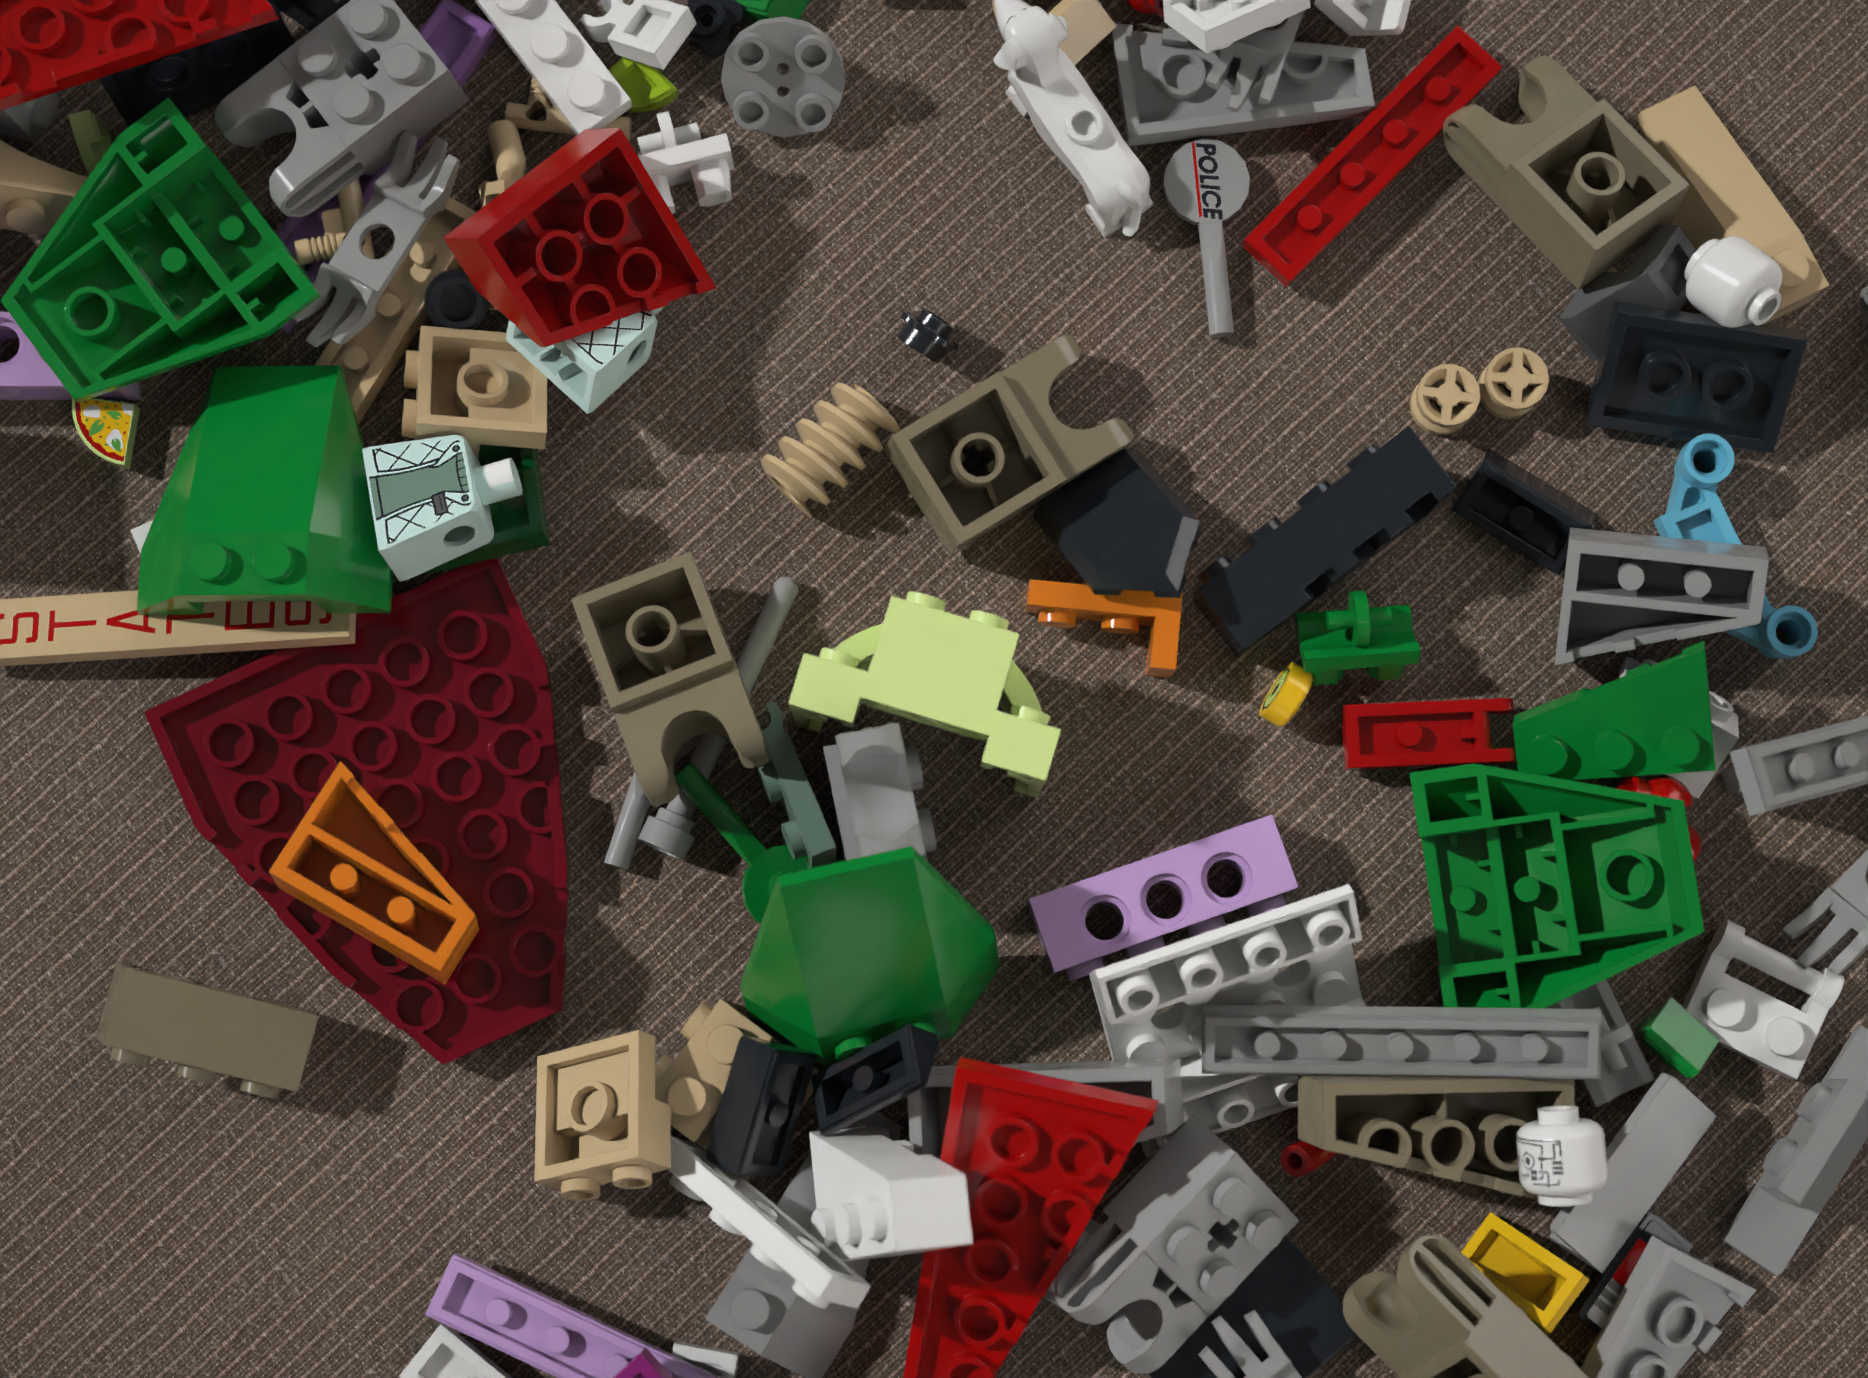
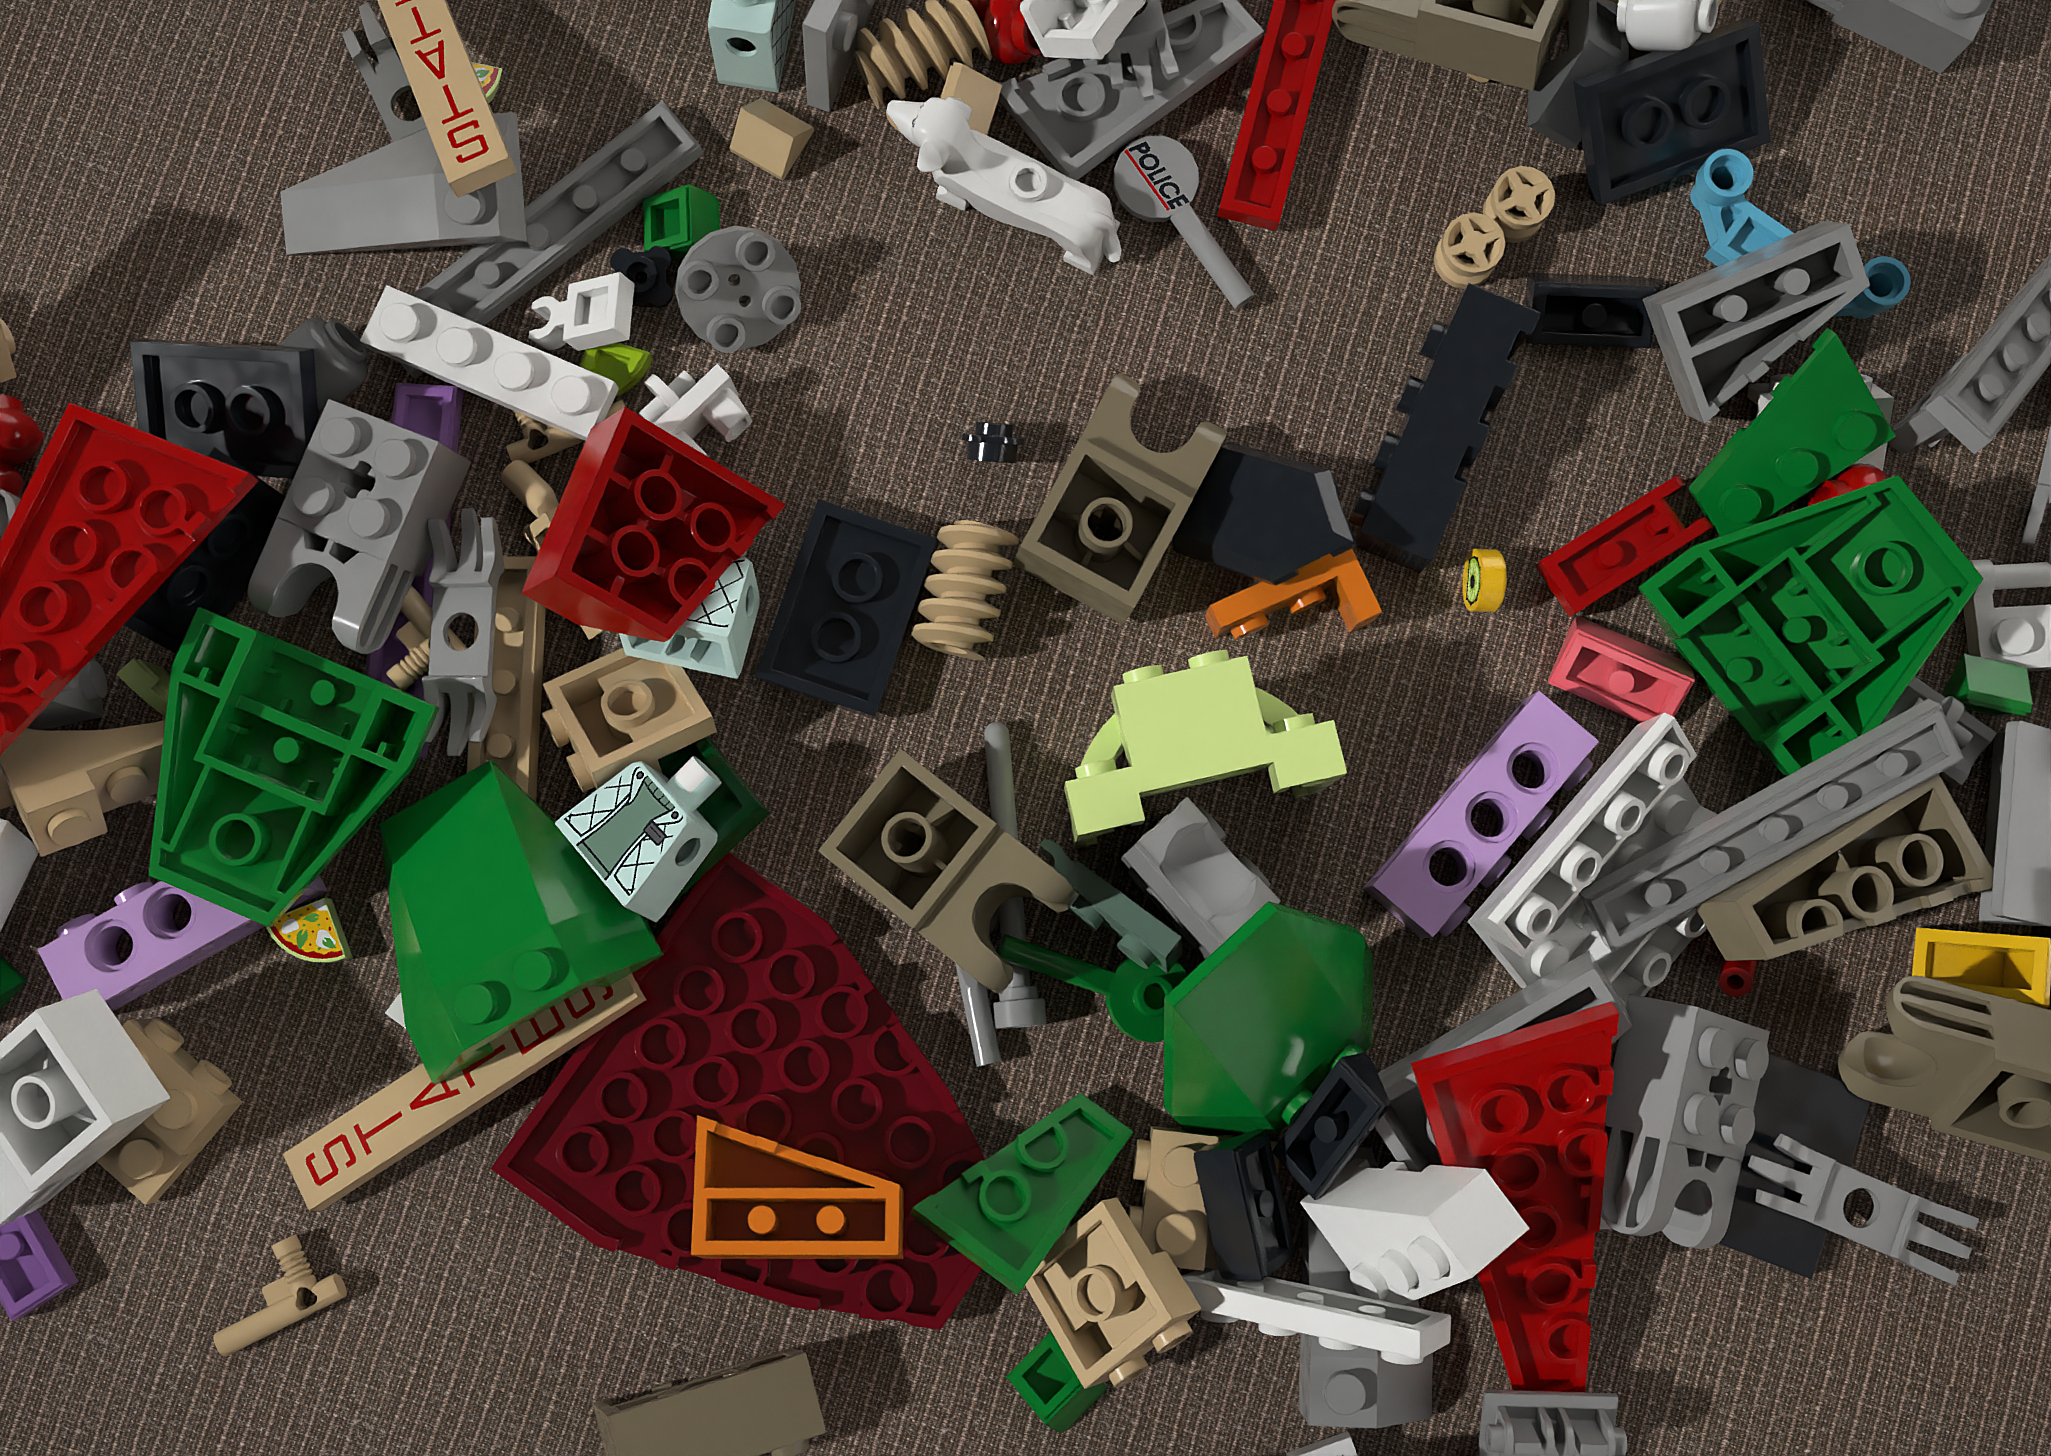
camera: 25 degrees left, 0 degrees up
(454, 301) = (559, 645): black plate -> none
(509, 1171) = (1052, 1386): none -> green slope
(580, 991) = (1024, 1196): none -> green wing
(718, 408) = (847, 609): none -> black plate
(1357, 638) = (1518, 497): green hips -> none
(1361, 844) = (1620, 672): none -> coral slope
(1562, 1157) = (1973, 846): white head -> none

